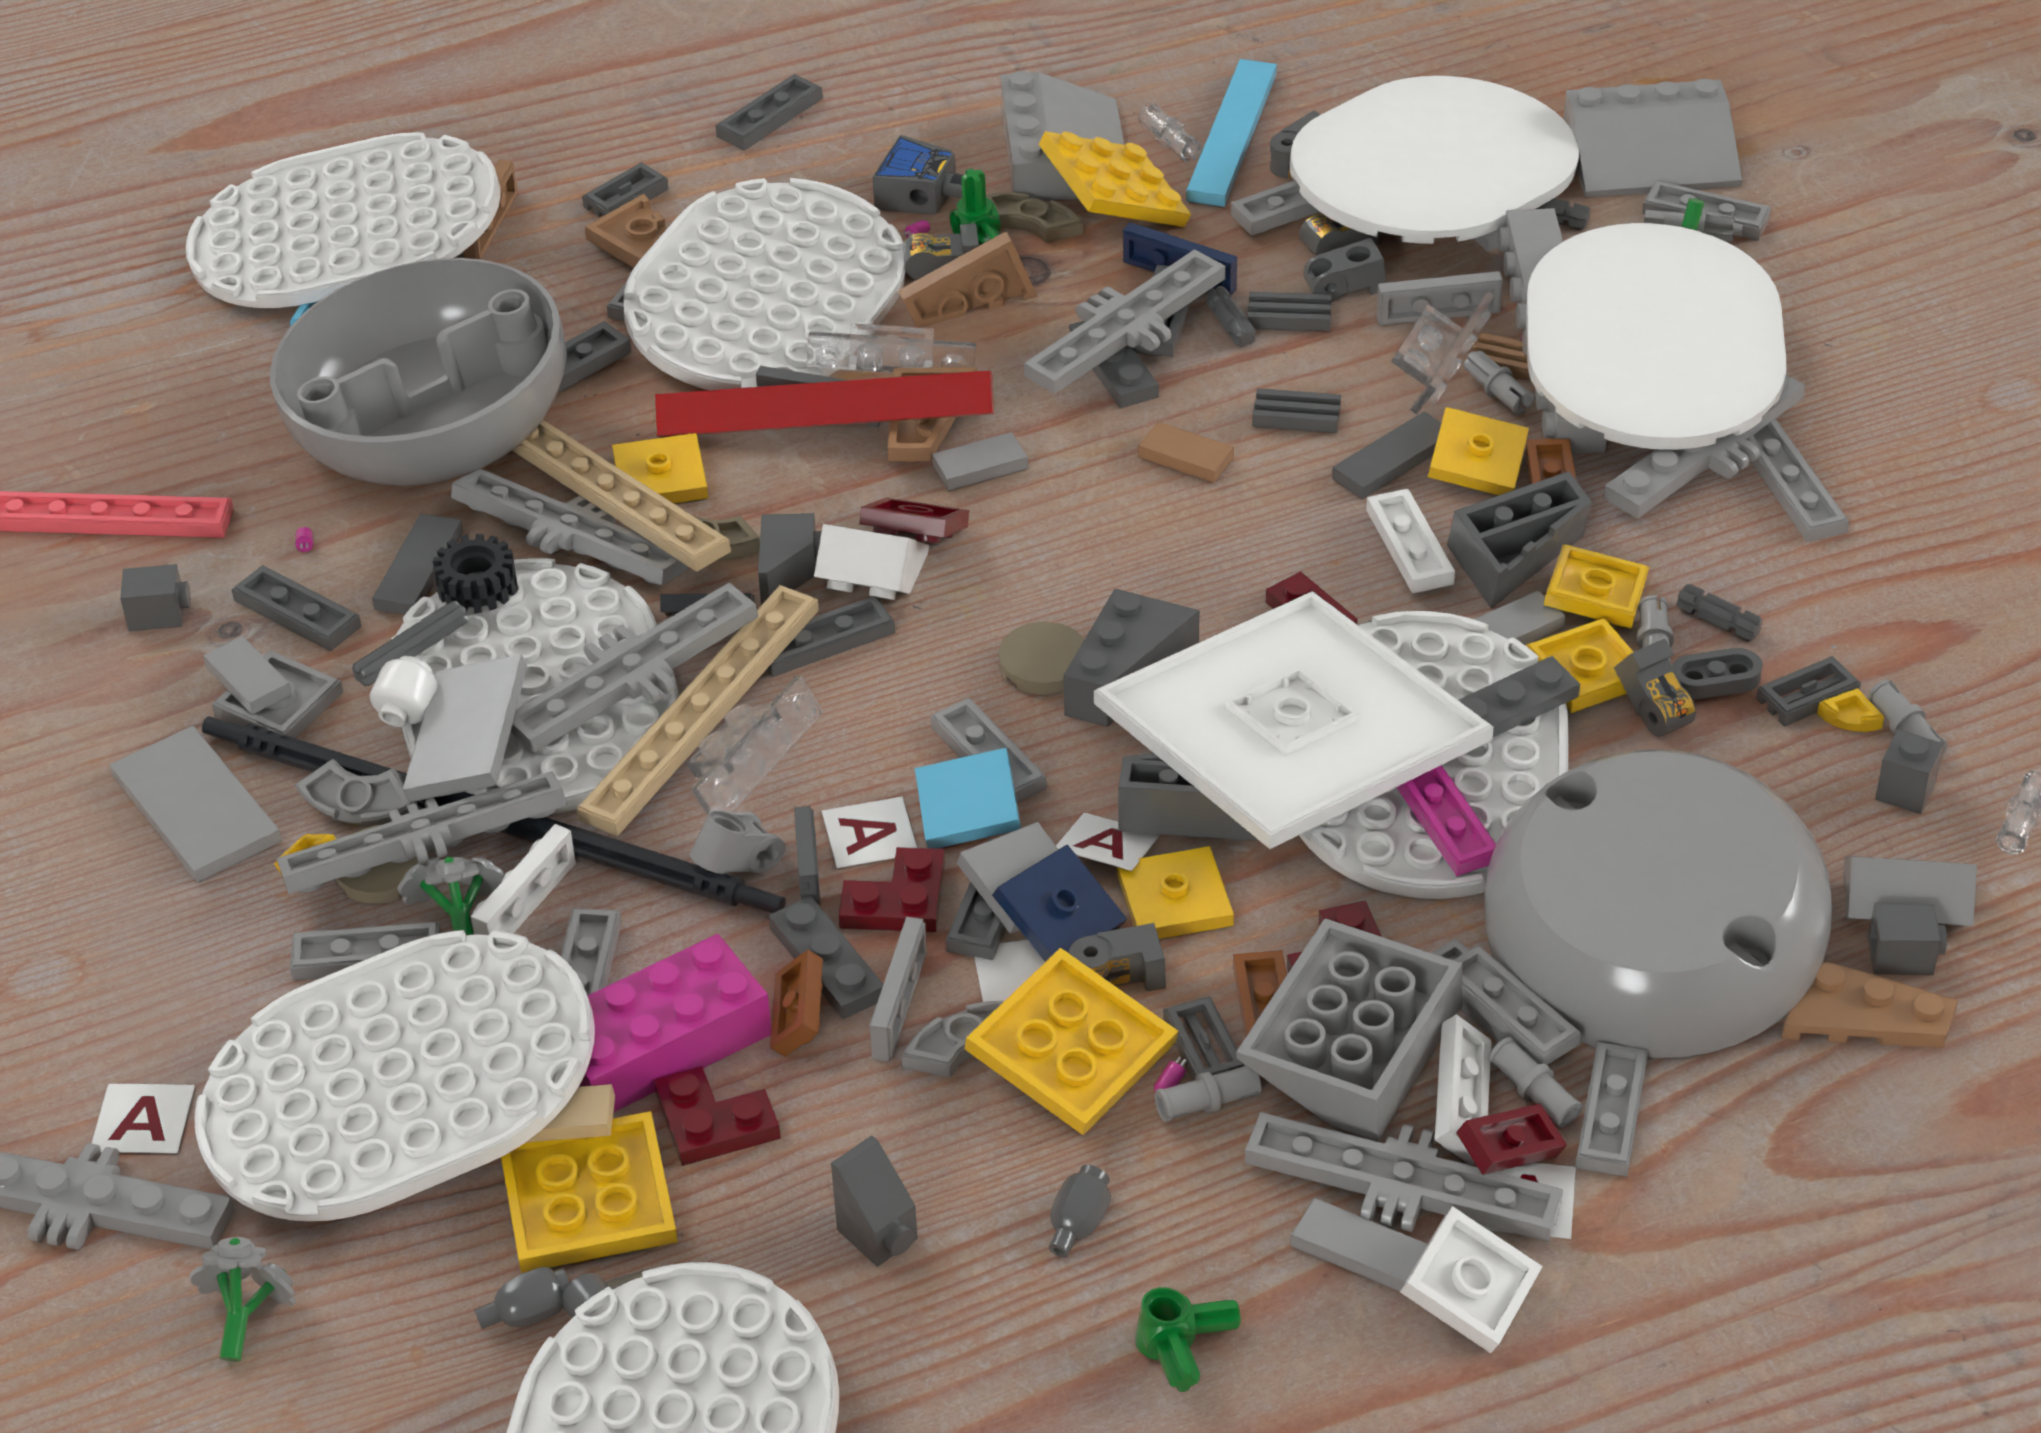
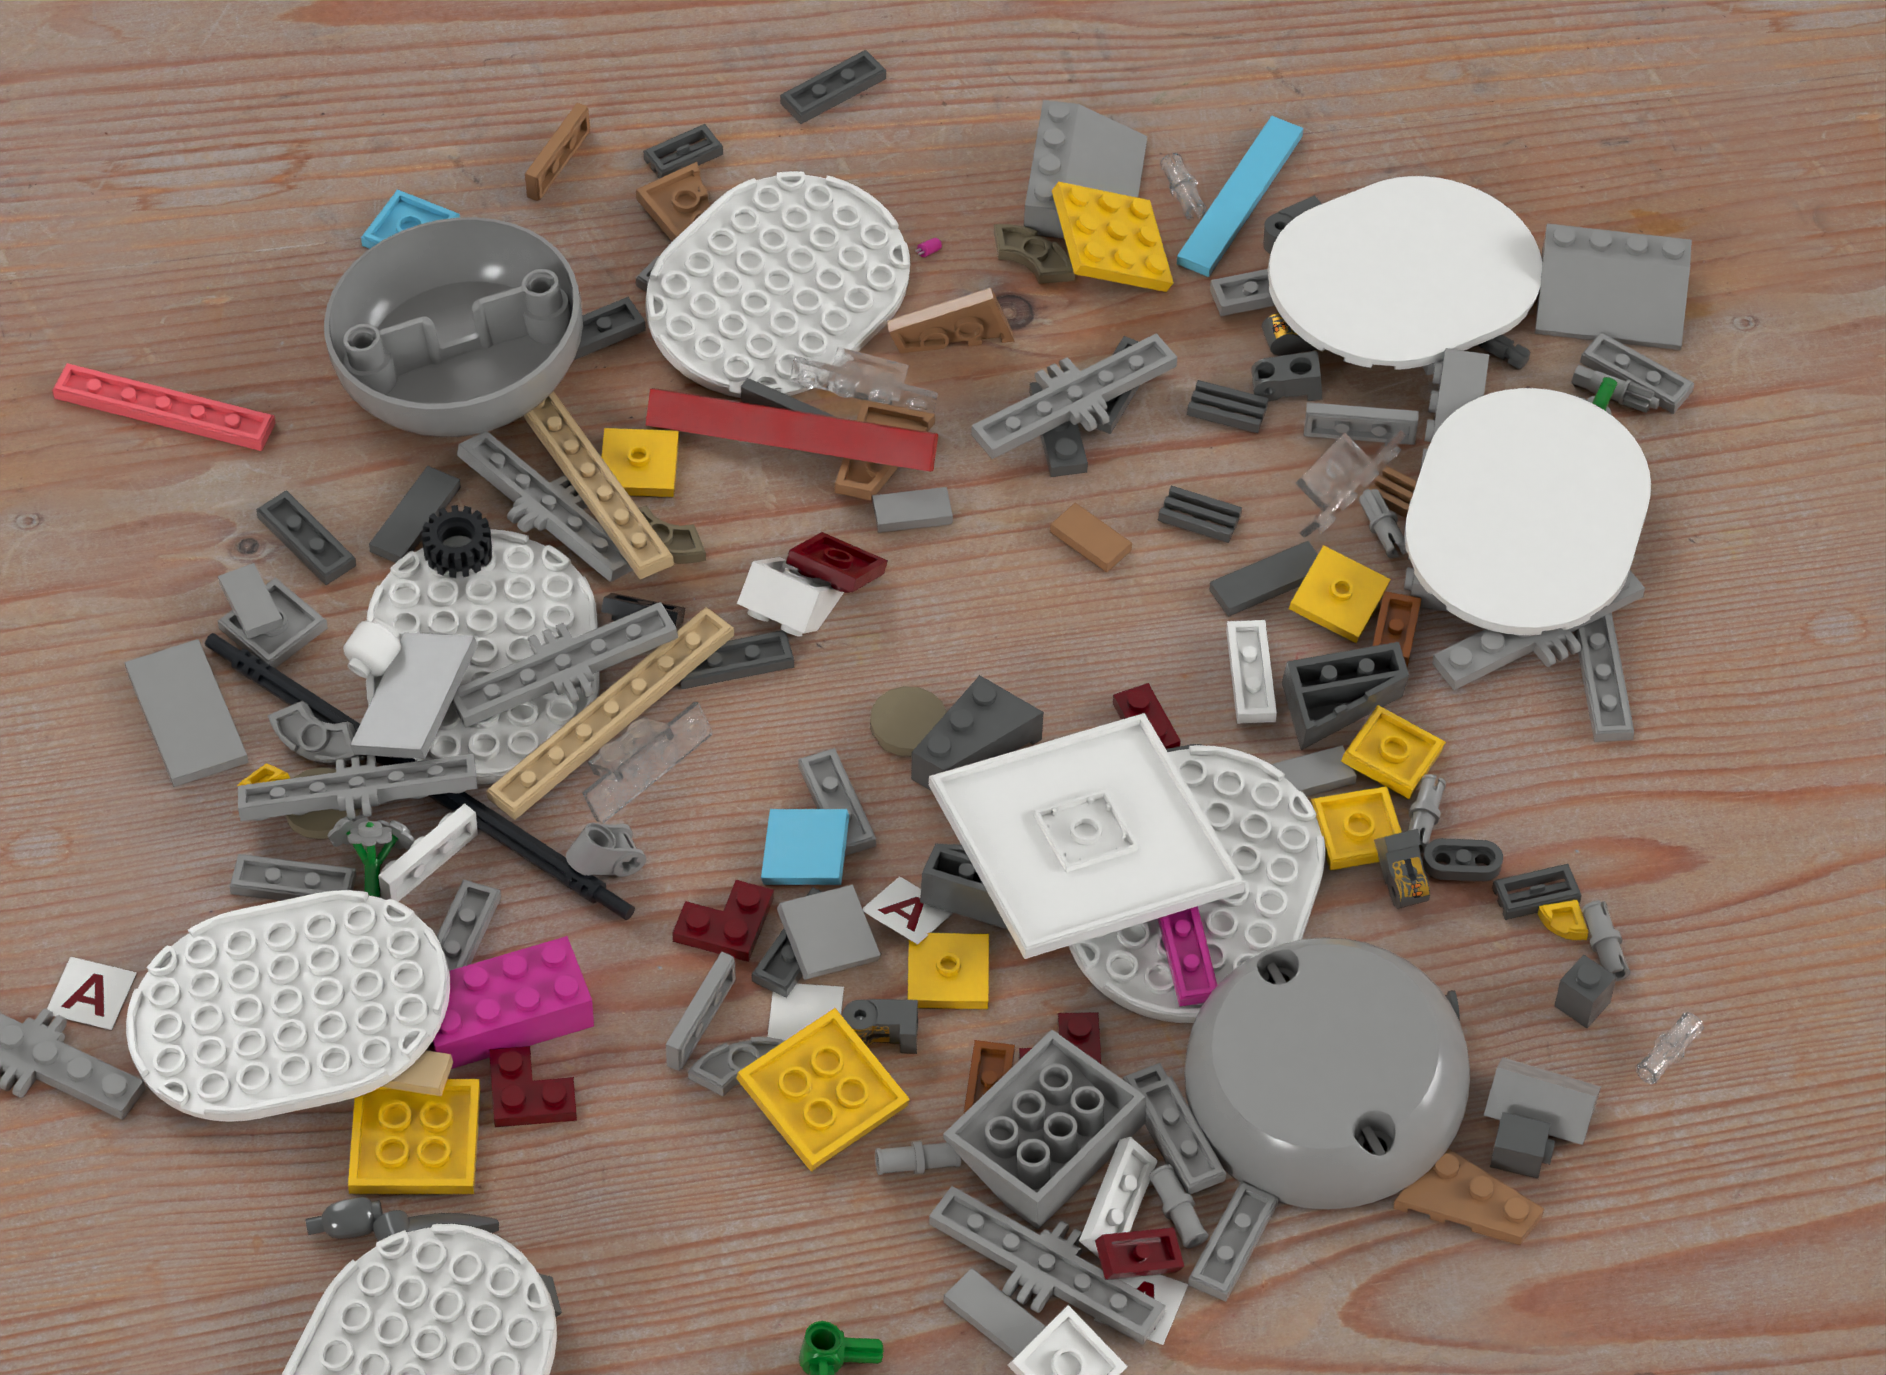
camera: 10 degrees right, 10 degrees up
(154, 597) = (190, 505): dark grey brick -> none
(223, 1270) = (125, 1145): plant -> none
(304, 539) = (327, 468): dark pink piece -> none
(341, 216) = (429, 138): white tile -> none
(411, 641) = (389, 598): dark grey axle -> none
(787, 551) = (720, 573): dark grey slope -> none
(796, 1003) = (617, 1006): dark orange plate -> none
(807, 853) = (660, 874): dark grey tile -> none
(845, 976) = (653, 967): dark grey plate -> none
(868, 831) = (720, 856): white sticker -> none
(872, 1203) = (627, 1200): dark grey slope -> none
(916, 178) = (942, 194): dark grey torso -> none
(927, 253) = (938, 284): dark grey leg -> none
(976, 208) = (981, 253): green axle -> none
(1058, 903) = (848, 965): dark blue plate -> none
(1078, 1208) = (787, 1235): dark grey plant -> none
(1150, 248) = (1138, 325): dark blue tile -> none
(1171, 1075) = (894, 1135): dark pink piece -> none
(1218, 1029) = (926, 1080): dark grey tile -> none
(1230, 316) = (1174, 402): dark grey axle -> none
(1523, 695) = (1283, 852): dark grey plate -> none
(1719, 612) = (1489, 798): dark grey axle -> none

